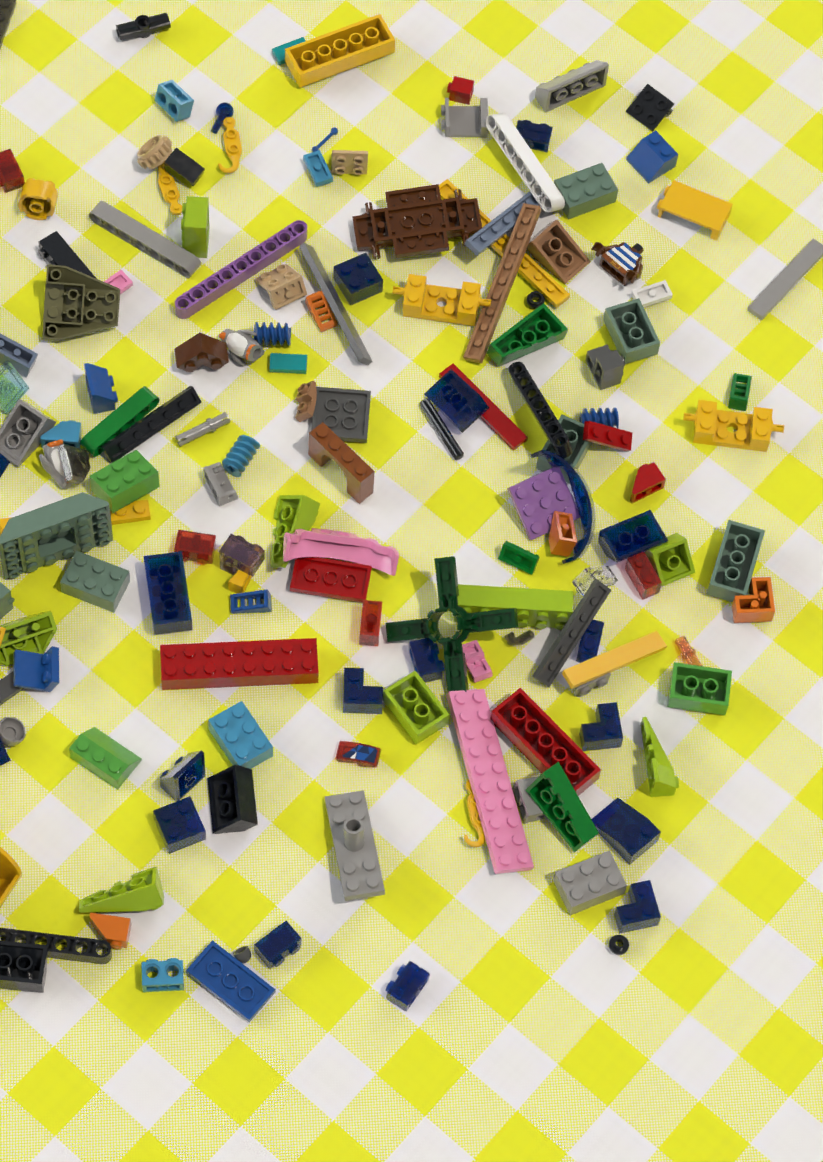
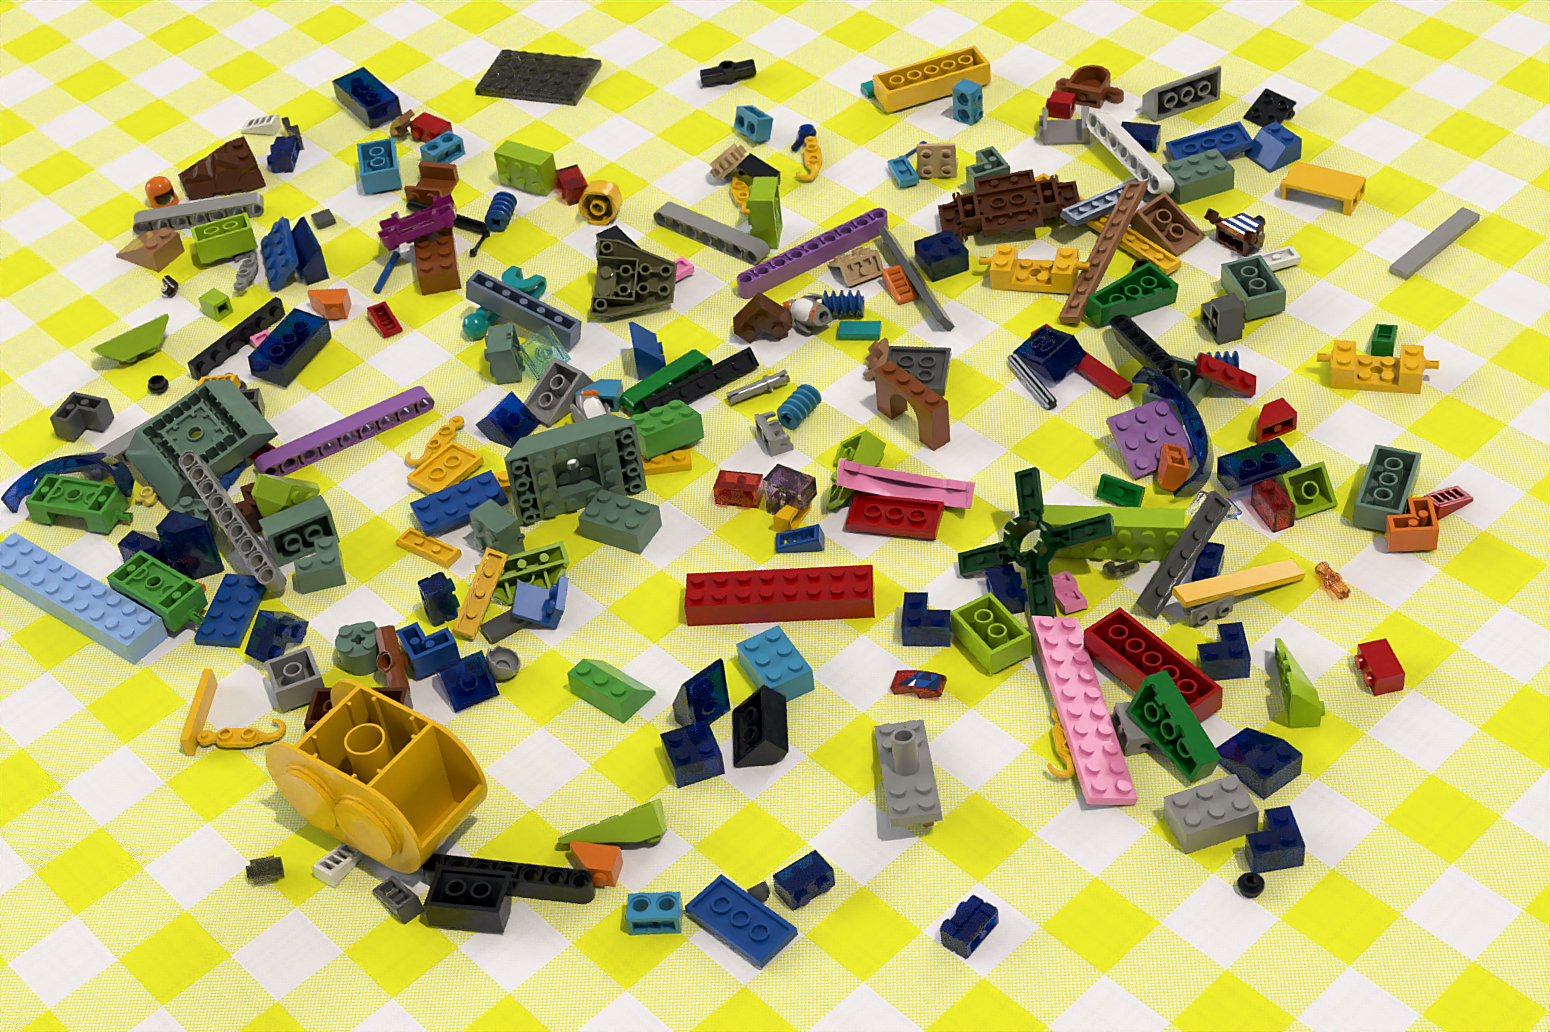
camera: 15 degrees right, 20 degrees down
(74, 463) = (604, 404): clear smoke plate -> none
(168, 593) = (702, 529): clear blue brick -> none
(370, 623) = (939, 553): clear red brick -> none
(375, 86) = (967, 102): none -> dark azure brick
(398, 175) = (988, 164): none -> sand green brick
(487, 67) = (1091, 86): none -> dark orange piece
(603, 147) = (1226, 139): none -> blue plate
(699, 688) = (1347, 611): bright green brick -> none
(722, 742) = (1379, 667): none -> red brick
(776, 582) = (1444, 508): none -> red slope

